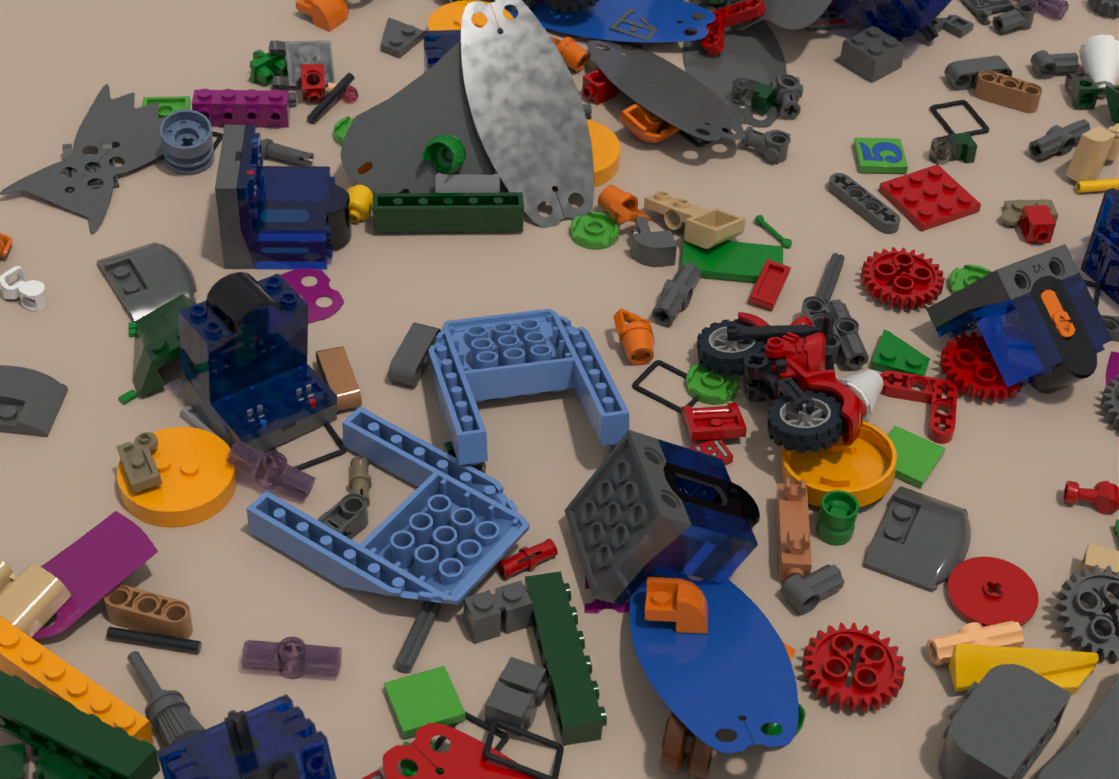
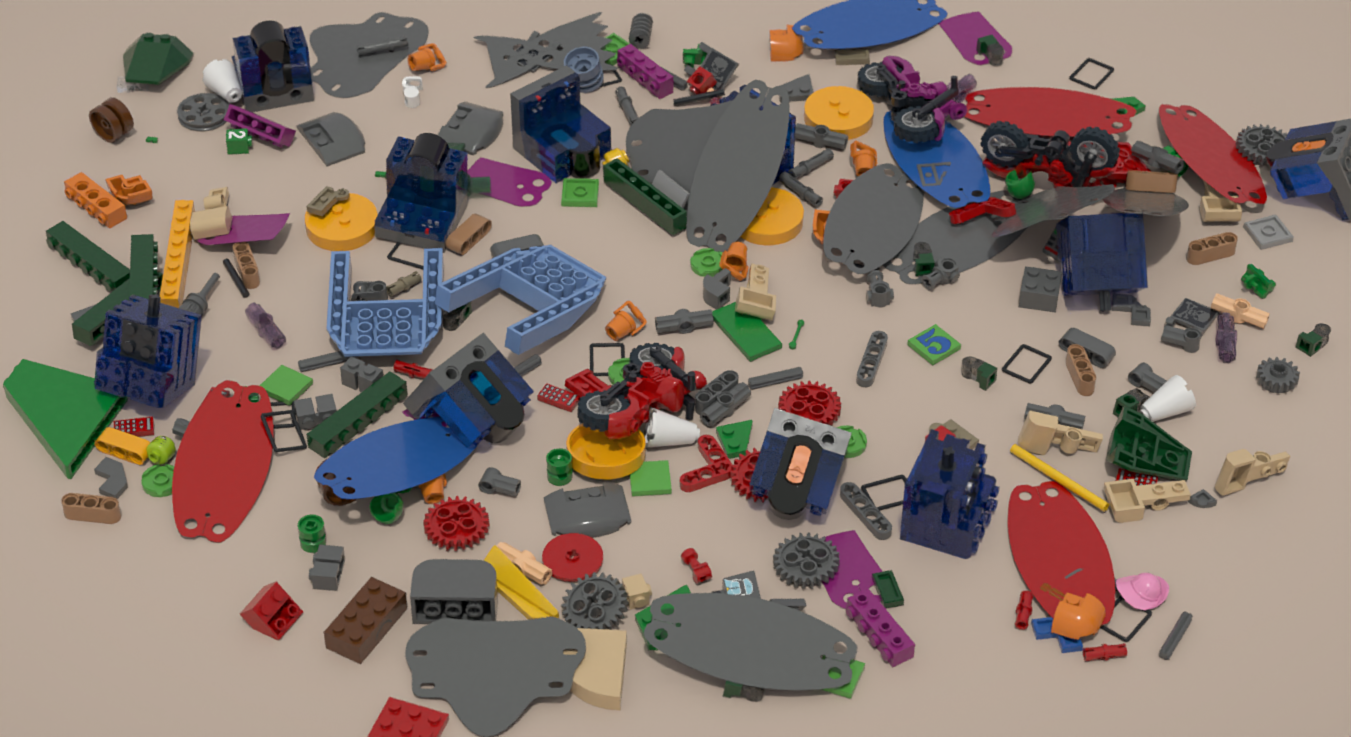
camera: 55 degrees right, 0 degrees up
(172, 77) = (640, 30): none -> dark grey piece
(270, 469) = (373, 247): clear purple piece -> none
(369, 258) = (580, 192): none -> bright green tile
(445, 153) = (675, 161): green hair -> none
(677, 602) = (419, 429): orange brick -> none
(769, 285) = (736, 354): red tile -> none
(792, 530) = (530, 456): nougat brick -> none
(929, 197) = (915, 385): red plate -> none

